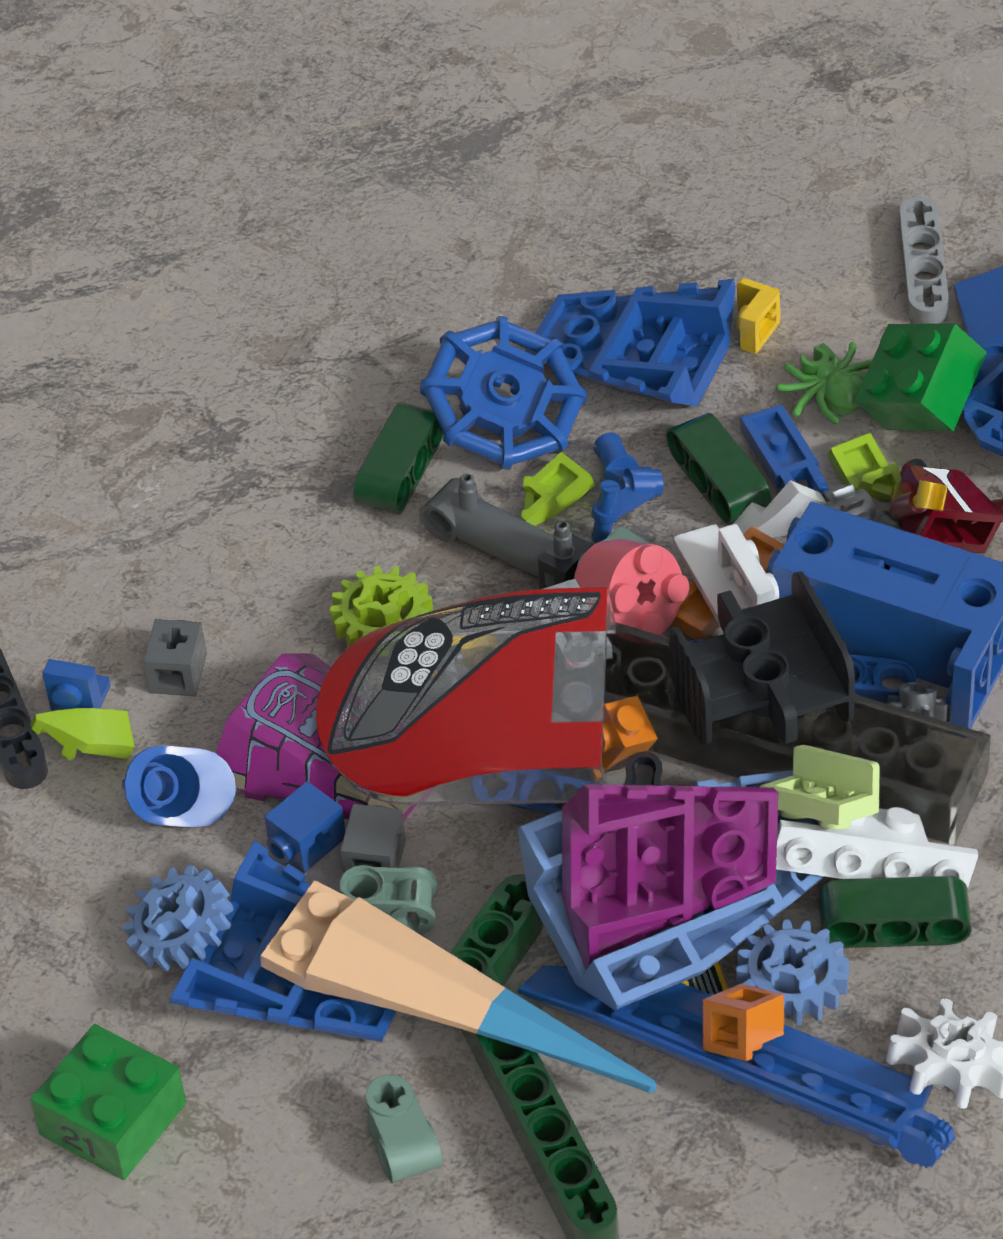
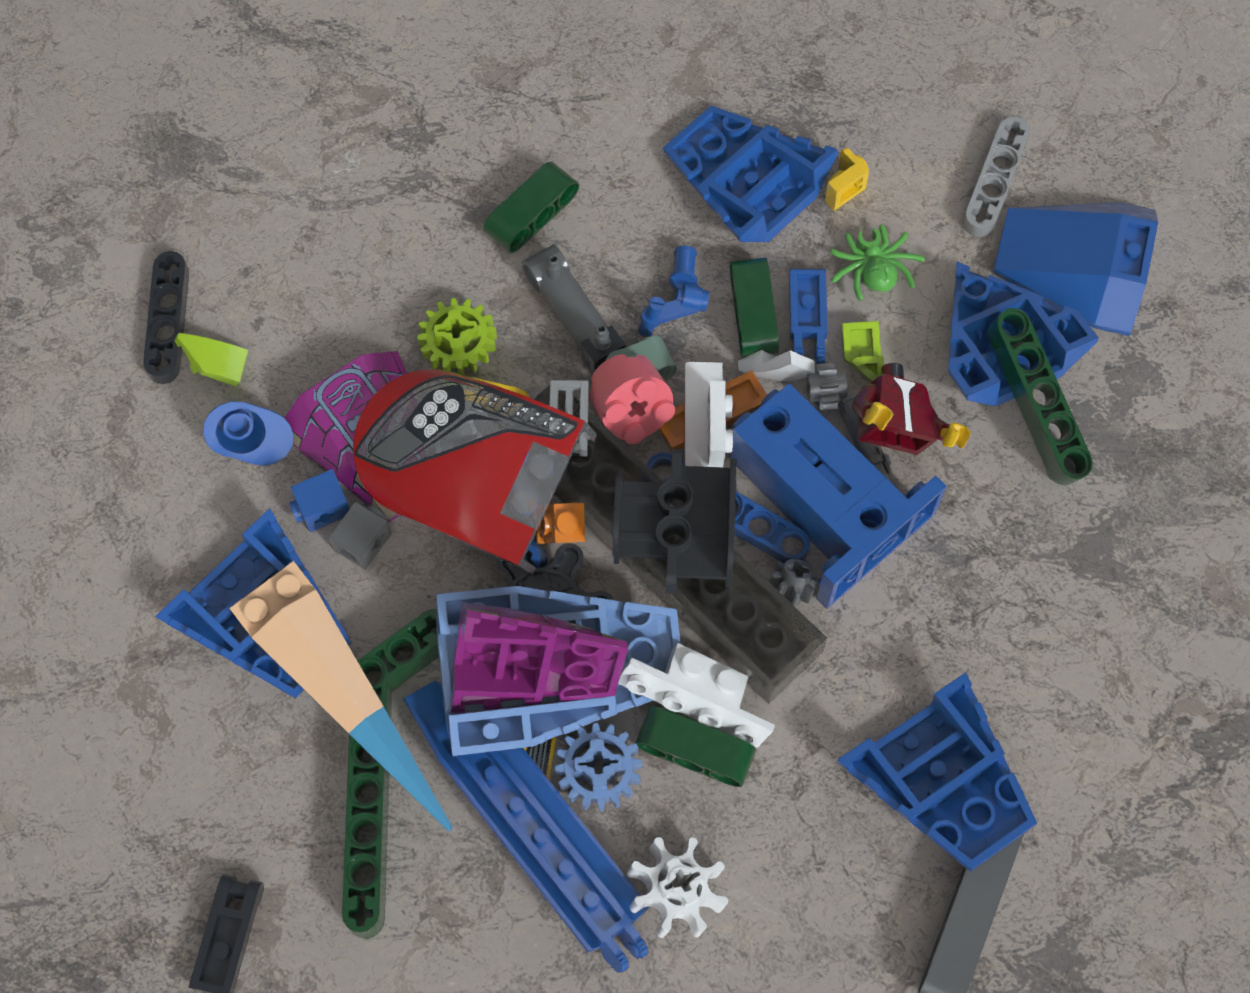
camera: 20 degrees right, 20 degrees up
(74, 685) = (221, 321): blue bracket -> none
(108, 1101) = (88, 673): green brick -> none
(177, 647) = (298, 318): dark grey brick -> none
(178, 918) = (200, 542): medium blue gear -> none
(392, 893) = (357, 589): sand green piece -> none
(400, 1129) = (269, 789): sand green piece -> none
(497, 414) = (625, 161): blue plate -> none
(554, 489) = (628, 276): lime slope -> none
(741, 1020) = (535, 803): orange brick -> none
(828, 788) = (673, 647): yellowish green bracket -> none
(920, 377) = (933, 294): green brick -> none

